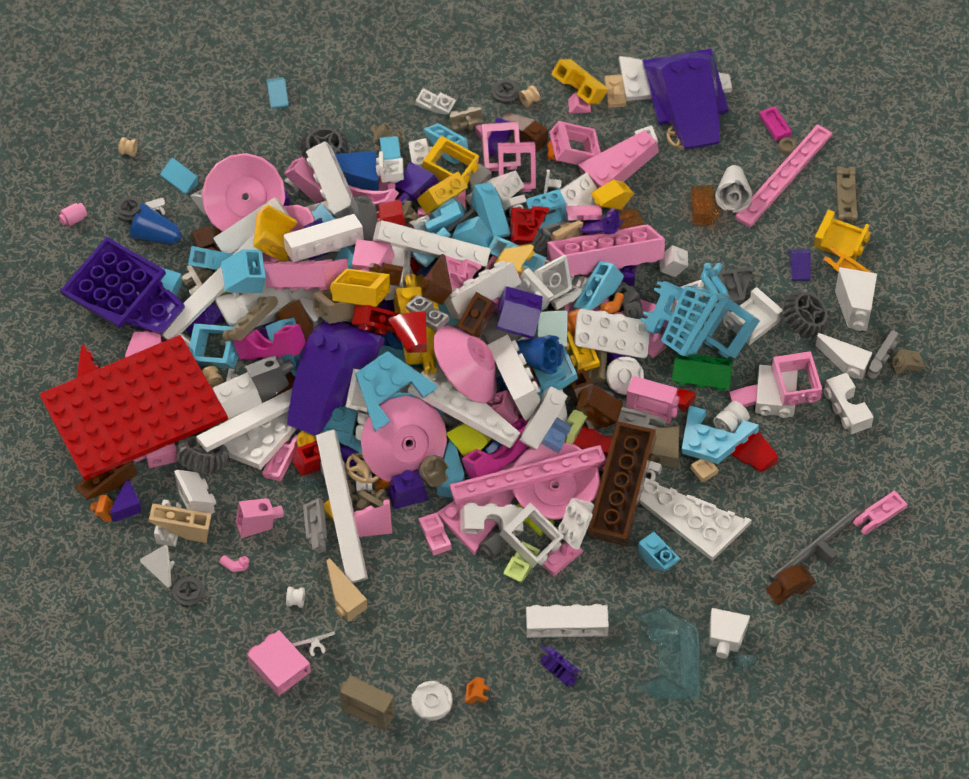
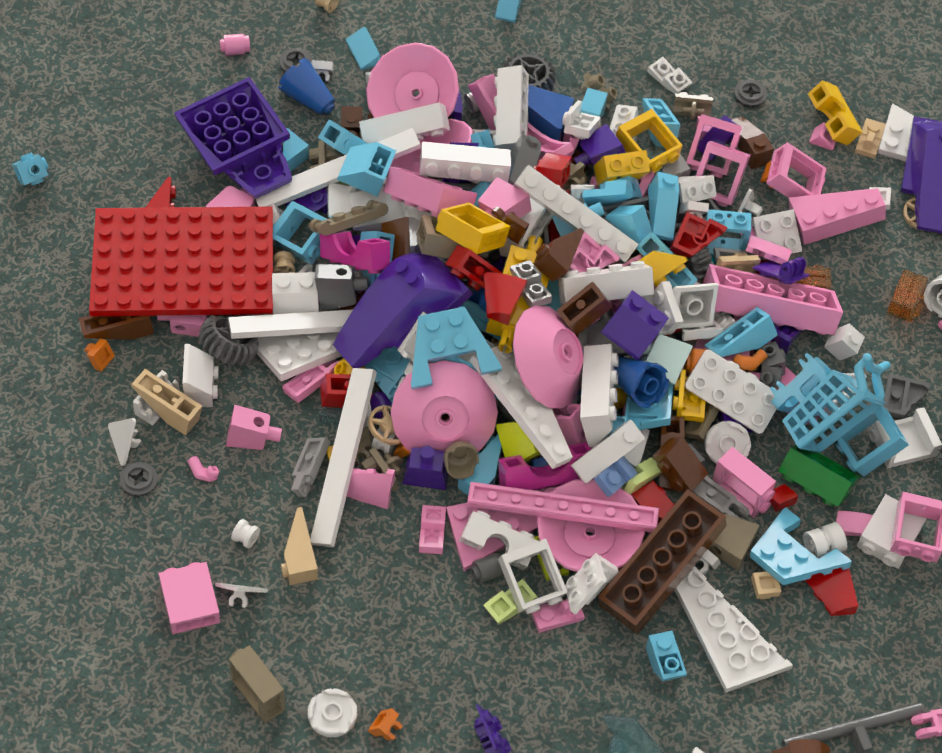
camera: 20 degrees right, 0 degrees up
(125, 504) = (124, 359): dark purple slope -> none
(269, 232) = (417, 128): yellow panel -> none
(529, 96) = (773, 107): tan wheel -> none
(567, 621) = (526, 689): white brick -> none
(613, 195) = (811, 244): yellow slope -> none
(655, 344) = (776, 426): bright pink slope -> none

